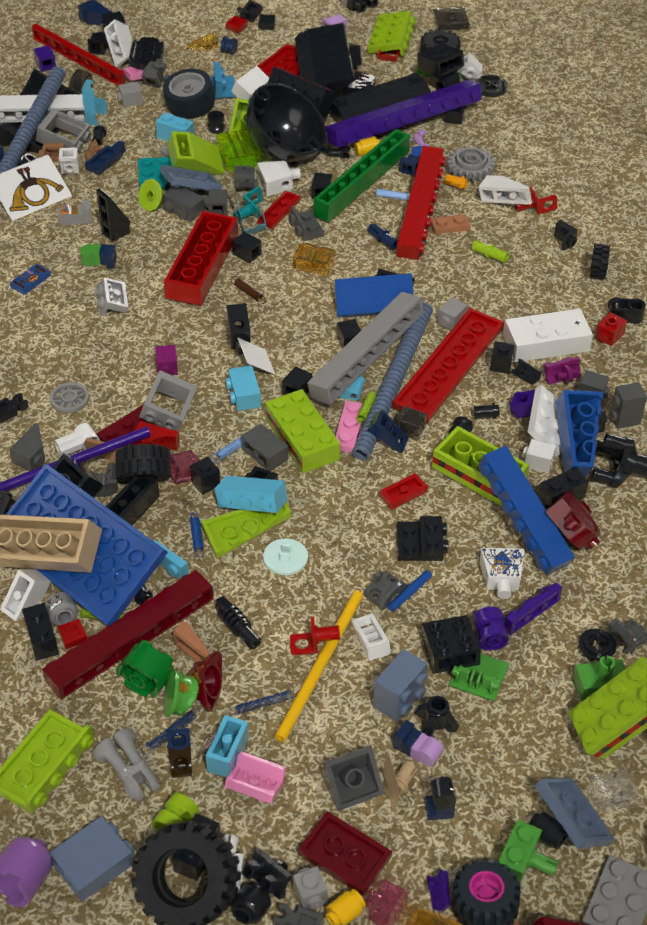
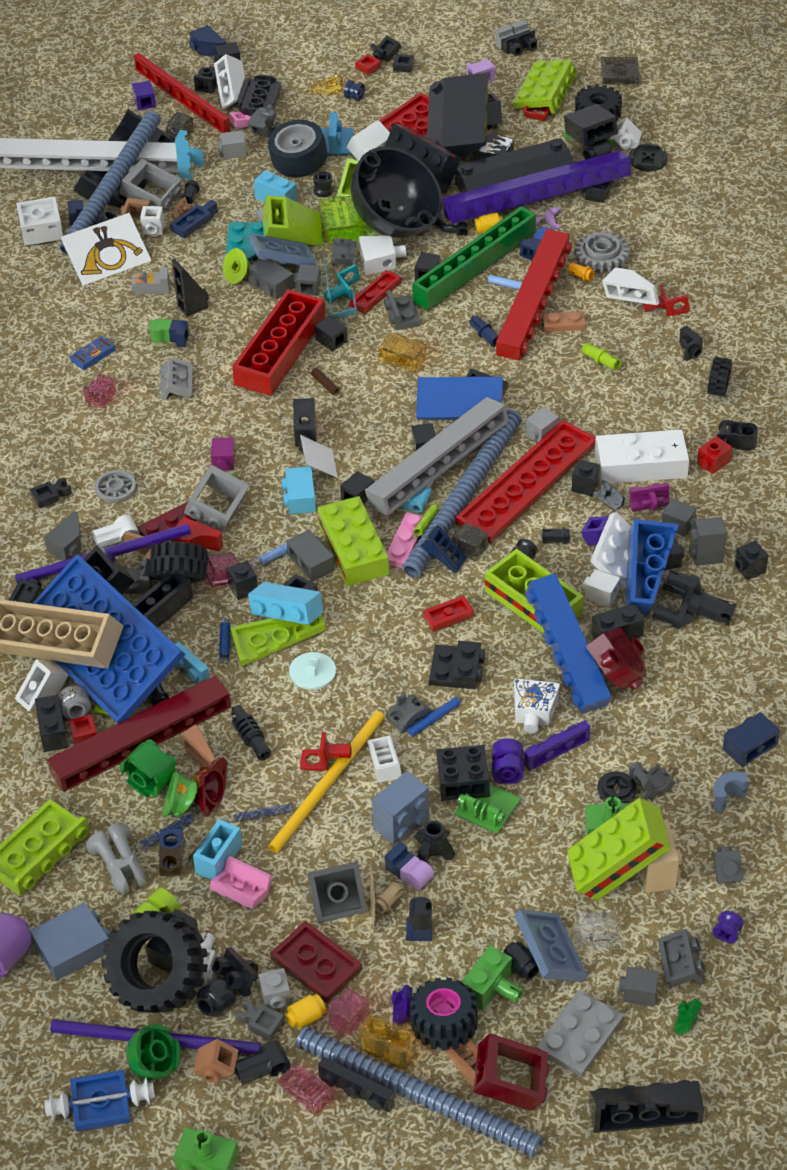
camera: 10 degrees right, 0 degrees up
(42, 312) = (100, 391): none -> clear pink brick

